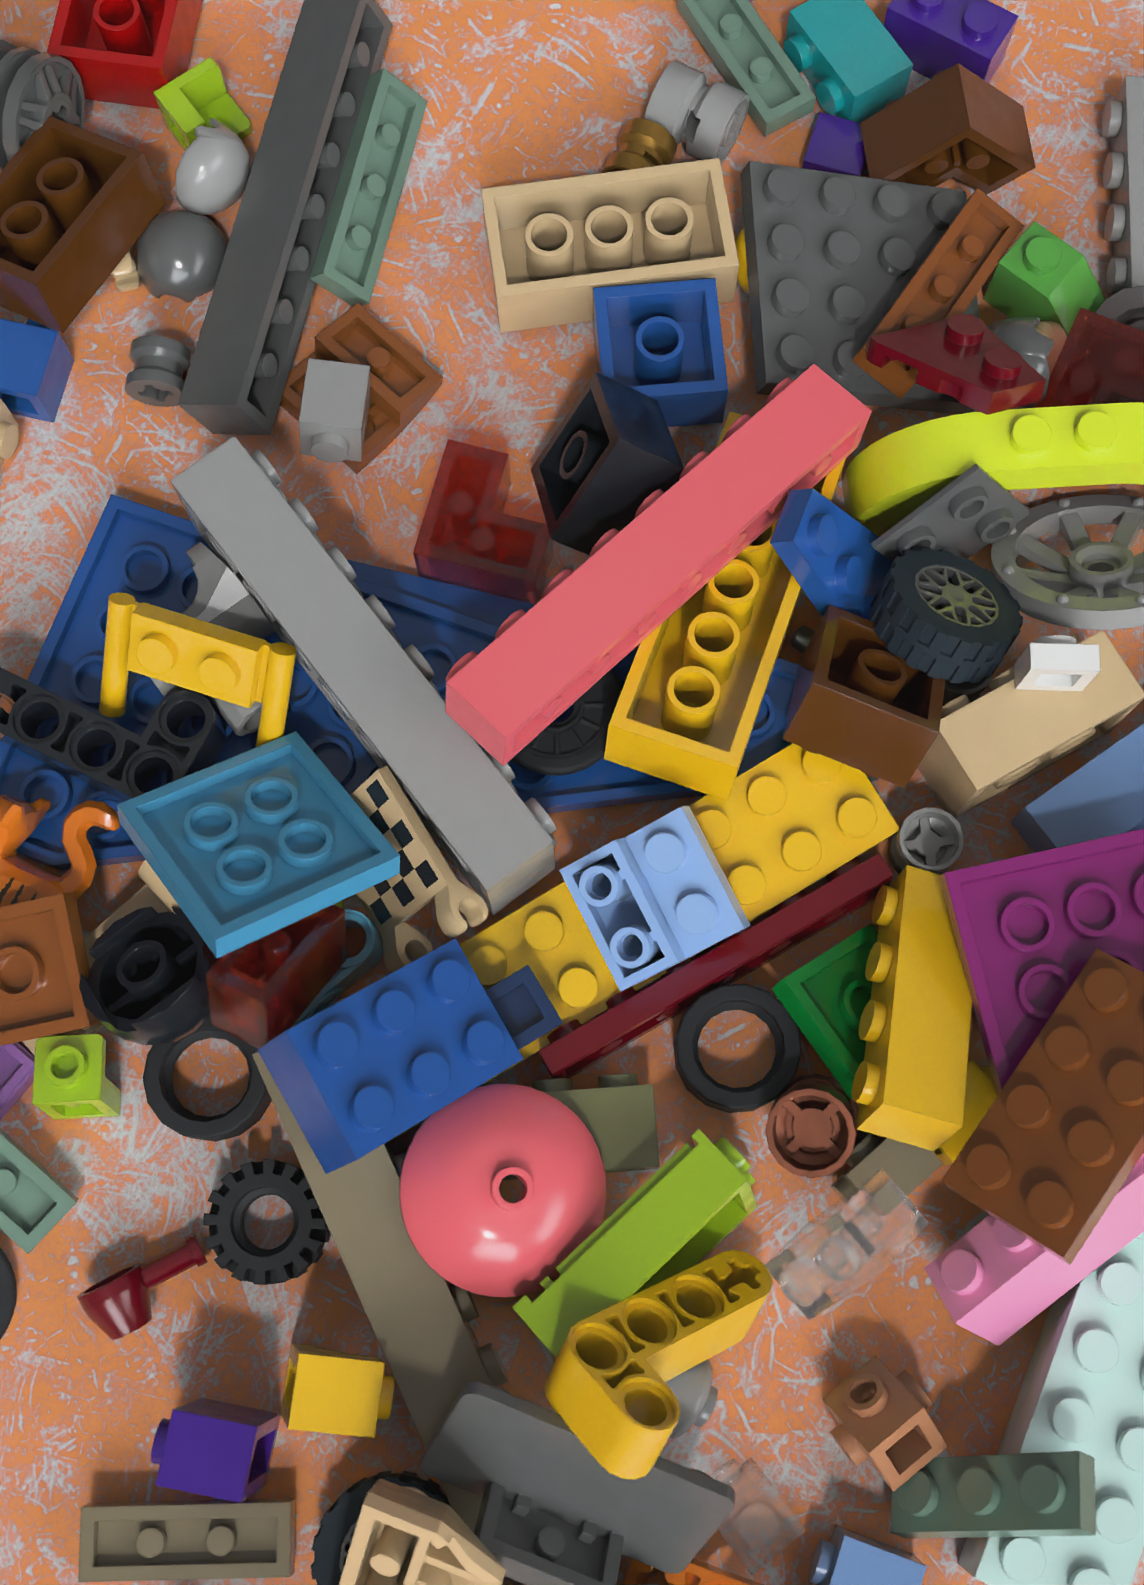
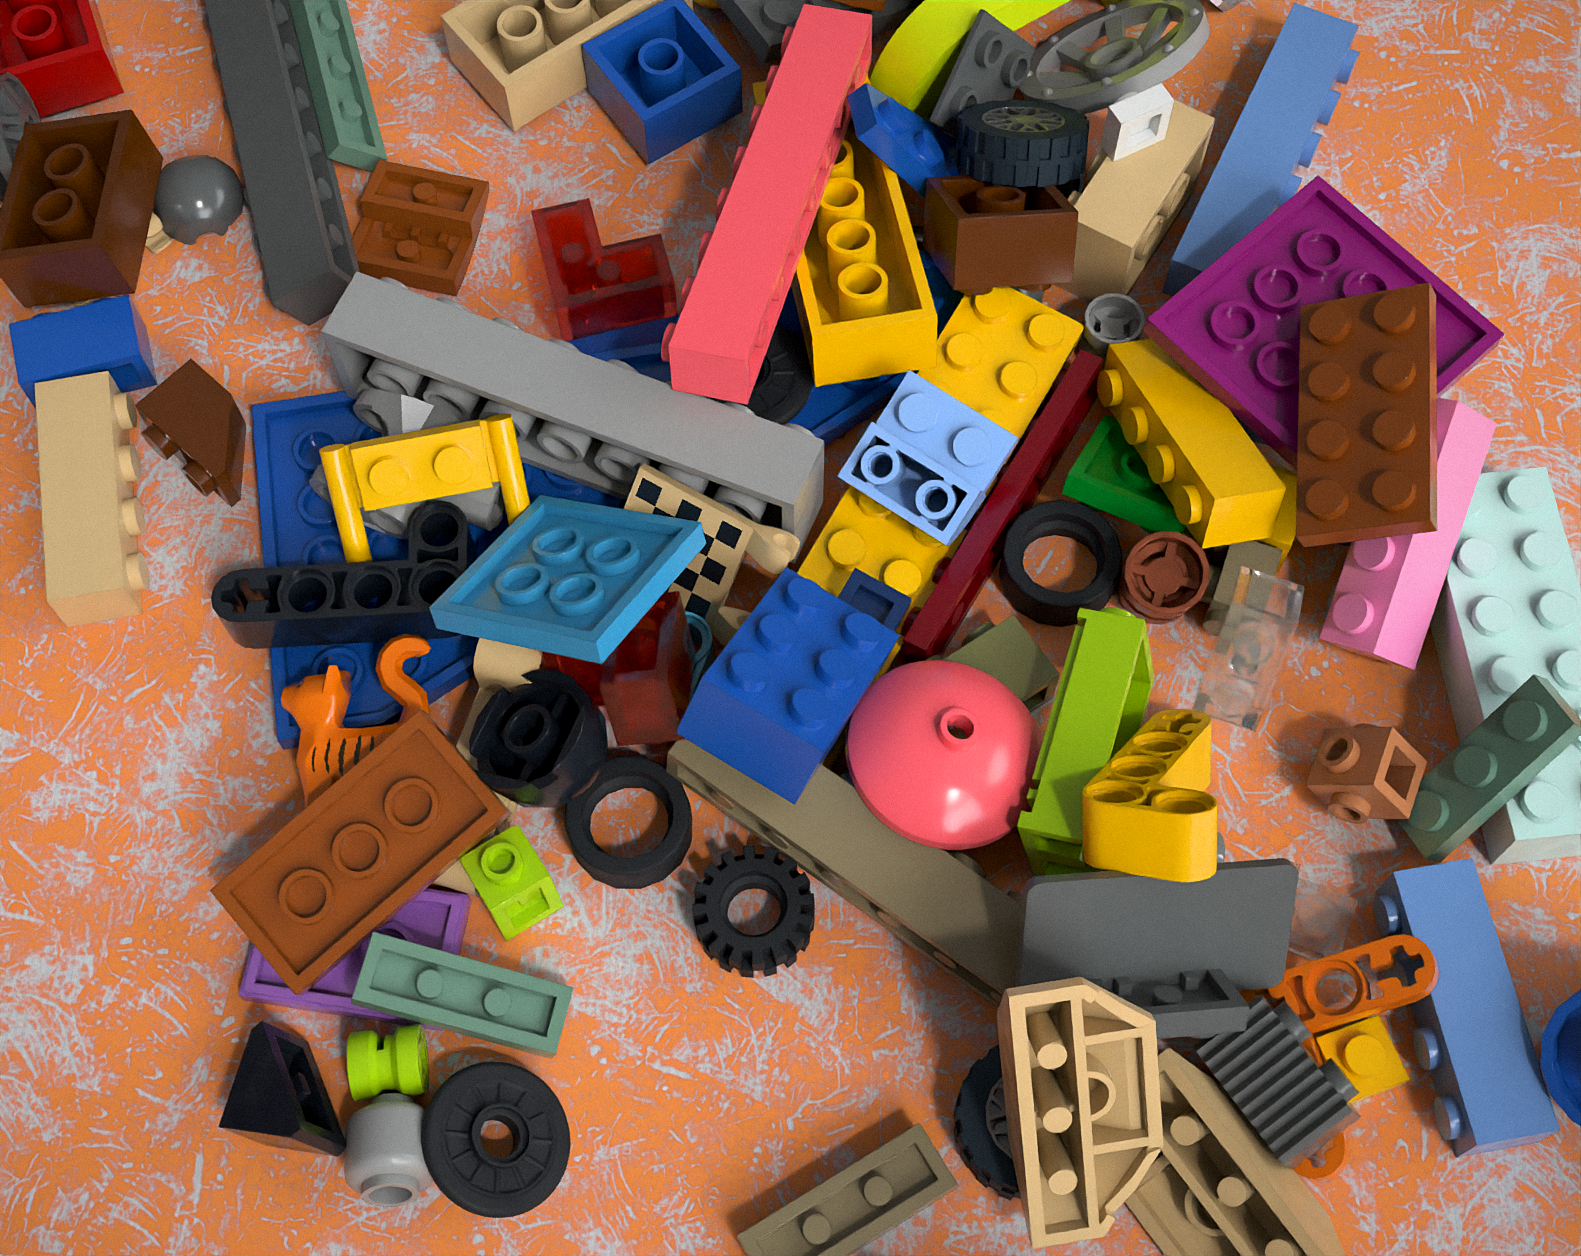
camera: 30 degrees left, 10 degrees down
(58, 492) = (200, 426): none -> reddish brown slope
(123, 1299) = (666, 1046): dark red bar -> none
(157, 370) = (233, 292): dark grey wheel -> none
(195, 99) = (147, 83): lime panel -> none
(212, 170) = (191, 114): light grey hair -> none
(215, 1449) = (830, 1103): dark purple brick -> none
(334, 410) = (415, 241): light grey brick -> none
(335, 1391) = (899, 997): yellow arch -> none
(604, 463) = (674, 166): black brick -> none

